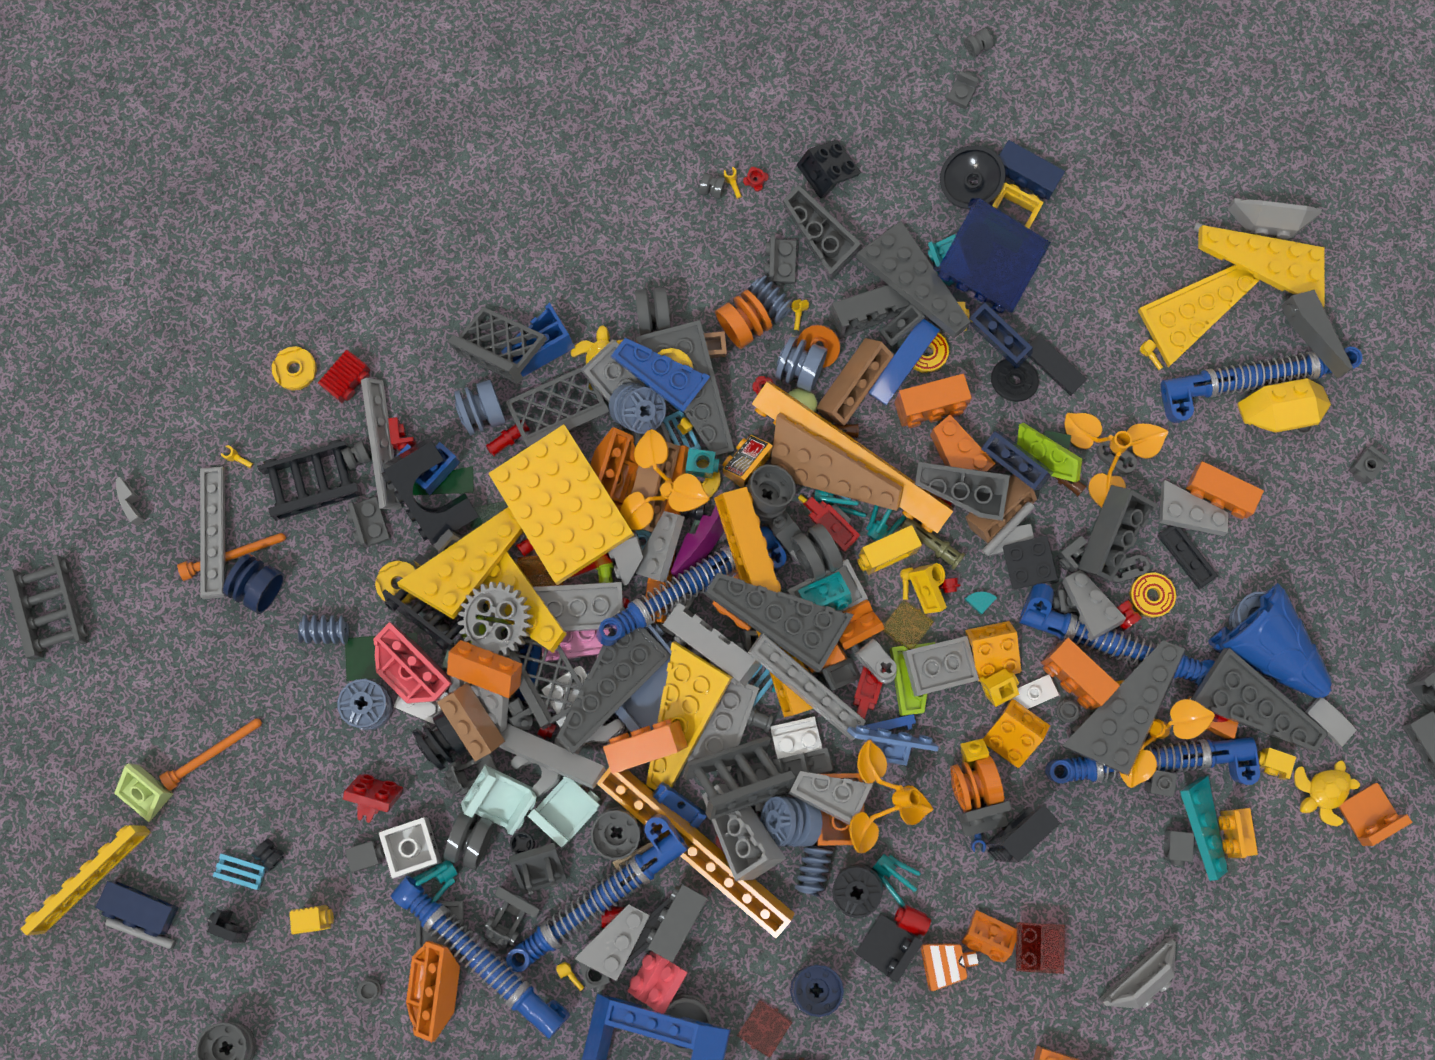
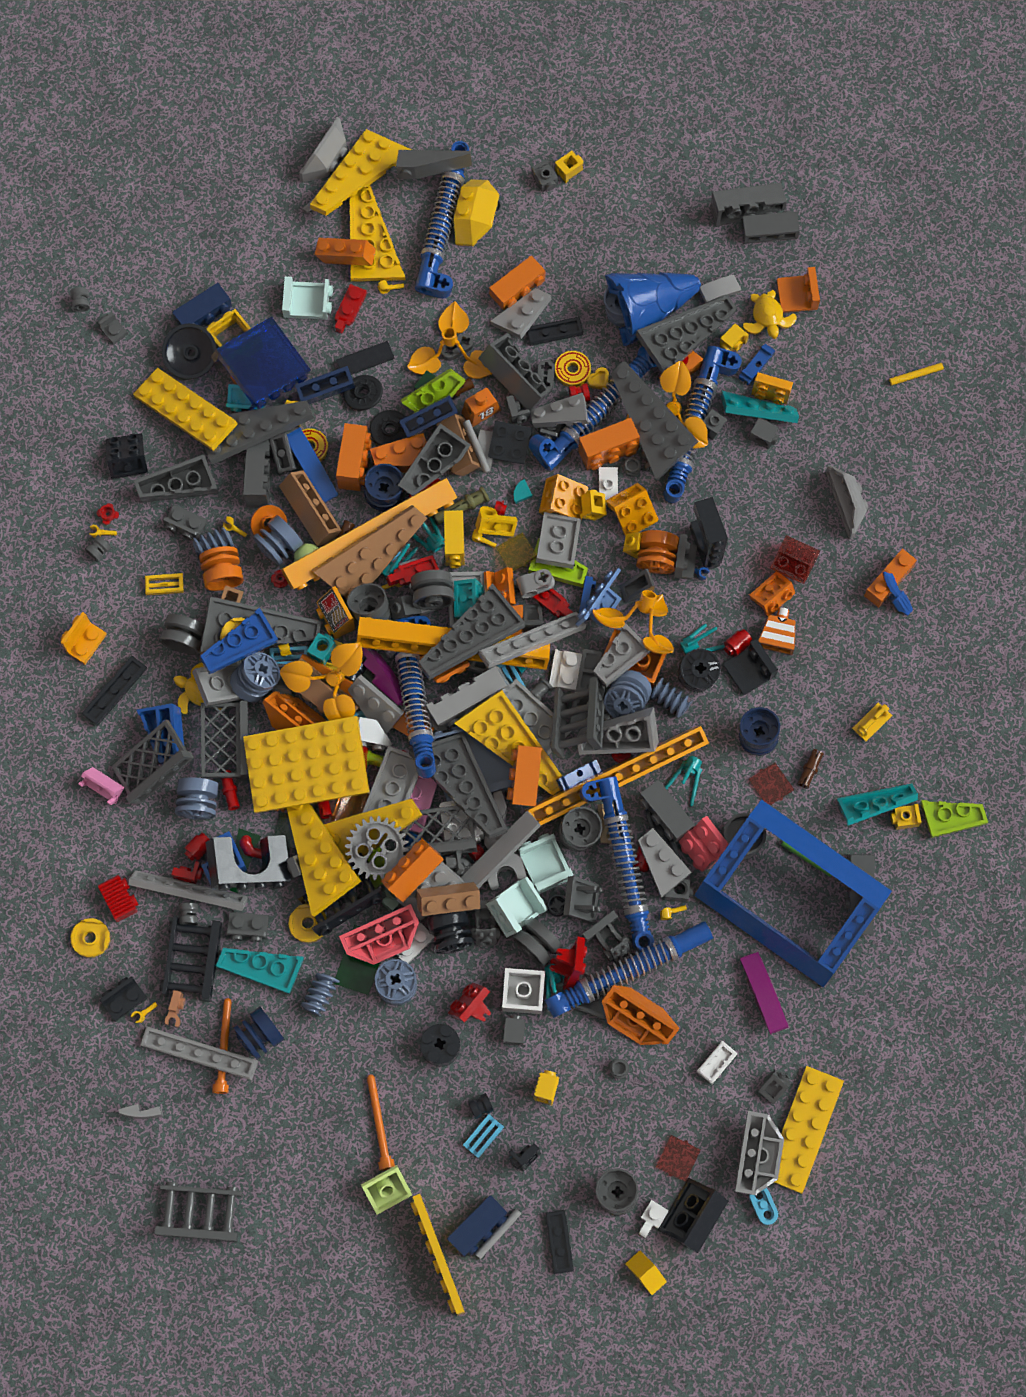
camera: 65 degrees left, 5 degrees down
(155, 1004) = (559, 1242): none -> black tile
(242, 430) = (122, 998): none -> black bracket
(256, 486) = (177, 1003): none -> nougat plate
(303, 782) = (446, 1035): none -> black brick
(330, 560) = (271, 970): none -> teal wing
(431, 429) = (196, 847): none -> red brick
(453, 484) = (248, 849): none -> red arm
(458, 305) = (102, 784): none -> bright pink hinge
(458, 888) = (570, 962): none -> red plate
(565, 272) = (114, 690): none -> black plate
(606, 214) = (82, 638): none -> light orange bracket
(713, 286) = (180, 589): none -> yellow tile
(745, 928) = (691, 767): none -> teal plant
(905, 203) = (185, 409): none -> yellow plate
(918, 436) = (387, 478): none -> dark blue wheel
(927, 777) = (633, 587): none -> dark grey slope
(990, 413) = (383, 419): none -> black wheel
(1057, 512) = (481, 405): none -> orange torso
(1093, 272) = (306, 299): none -> light aqua panel
(1106, 322) = (349, 307): none -> red hinge
(1154, 630) = (598, 379): none -> yellow tile
(1166, 287) = (345, 251): none -> orange brick
(1269, 804) = (761, 358): none -> blue piece
(1339, 997) = (915, 374): none -> yellow bar
(1399, 482) = (569, 160): none -> yellow brick

